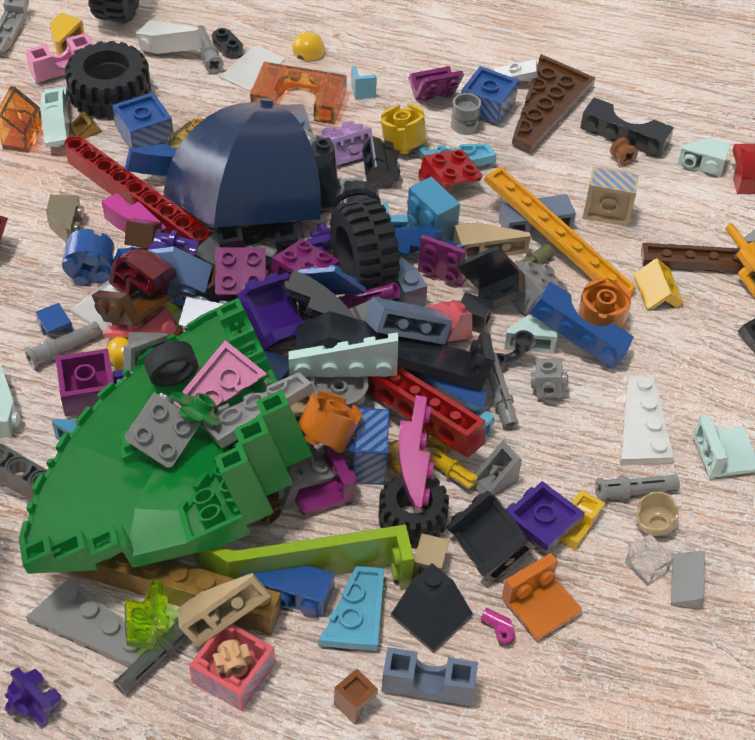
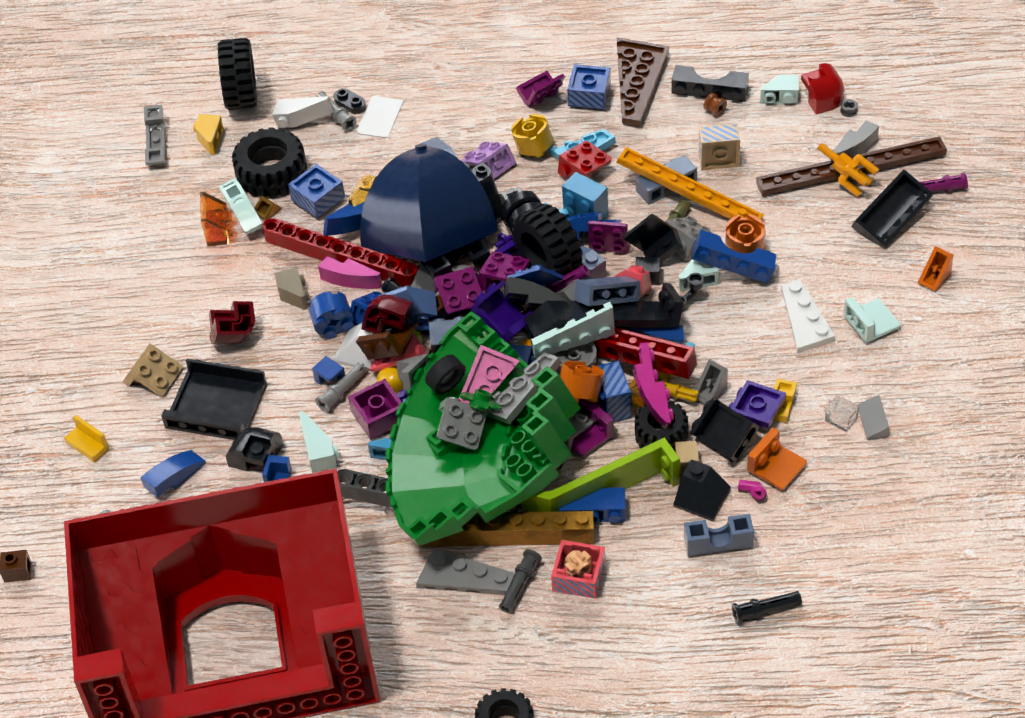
camera: 10 degrees left, 0 degrees up
(27, 699) = (446, 632): dark purple hips -> none
(46, 66) = (209, 164): bright pink arch -> none
(141, 232) = (366, 282): reddish brown brick -> none
(147, 619) = (507, 556): clear neon green bracket -> none
(165, 240) = (393, 283): dark purple hips -> none
(220, 607) = (558, 530): tan slope -> none
(309, 46) = (420, 84): yellow hair -> none
(326, 86) = (410, 120): clear orange arch -> none
(354, 694) = (671, 562): dark orange panel -> none
(358, 613) = (650, 509): medium azure wing -> none
(363, 86) = (481, 108): medium azure panel -> none
(380, 162) = (524, 170): black brick -> none
(465, 113) = (576, 108): light grey wheel -> none
(481, 237) = (635, 209): tan slope -> none
(507, 415) = (694, 330): light grey pin -> none
(520, 71) = (604, 58): white plate -> none
(549, 378) = (724, 304): light grey brick -> none
(625, 487) = (807, 367): light grey pin -> none
(657, 285) = (779, 208): yellow panel -> none
(657, 514) = (837, 379): tan hair -> none

